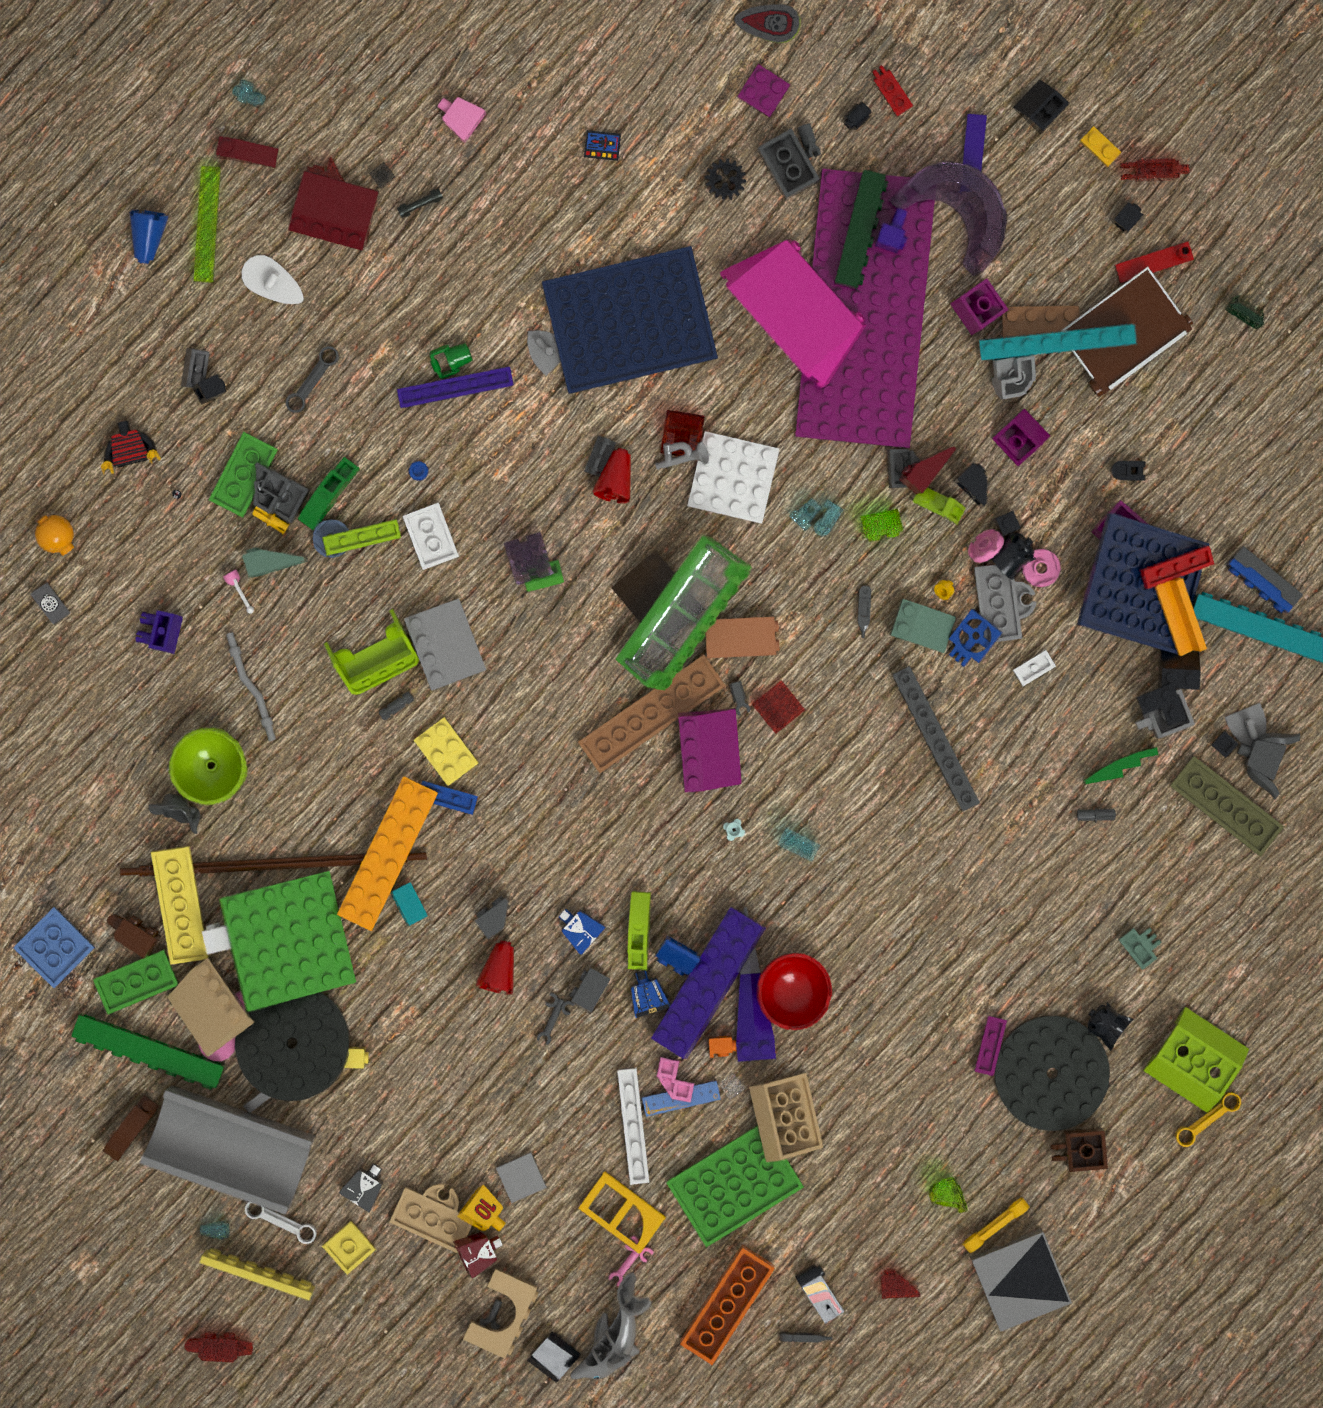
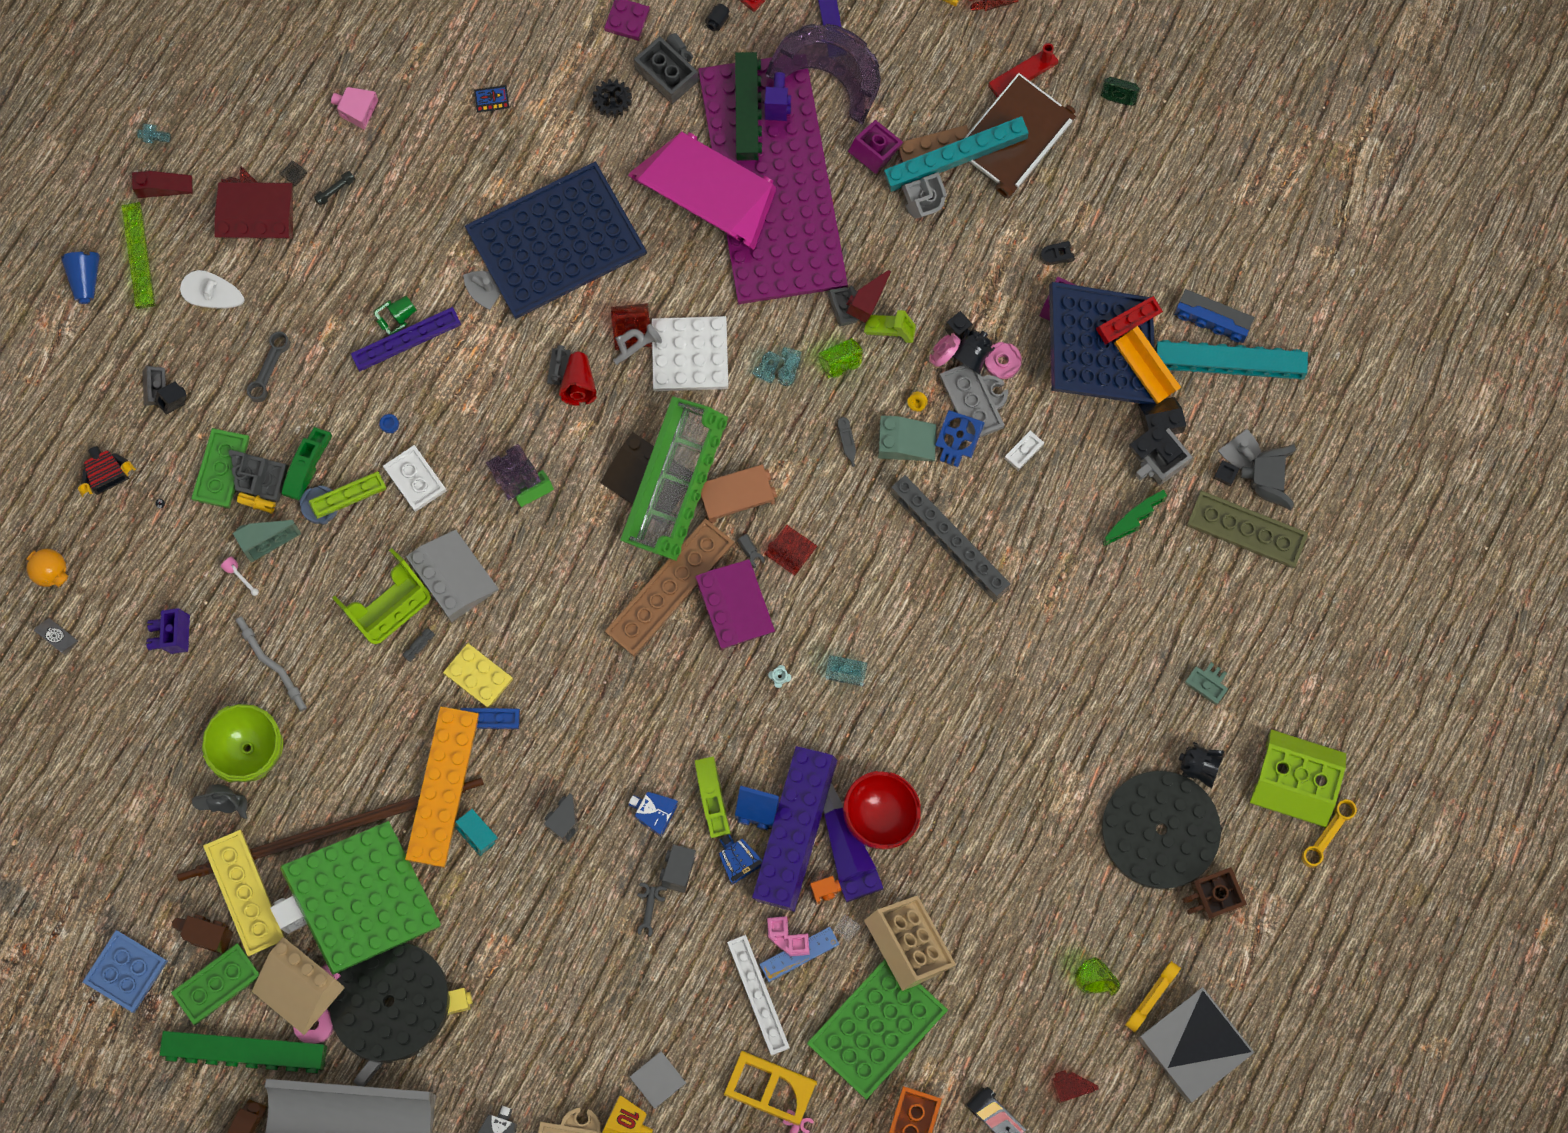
camera: 20 degrees left, 15 degrees down
(498, 970) = (581, 873): red cone -> none
(974, 483) = (916, 298): black slope -> none
(990, 1045) = (1092, 818): magenta plate -> none
(1021, 437) = (948, 249): magenta slope -> none
(1096, 814) = (1125, 570): dark grey axle -> none
(1128, 217) = (987, 40): black brick -> none

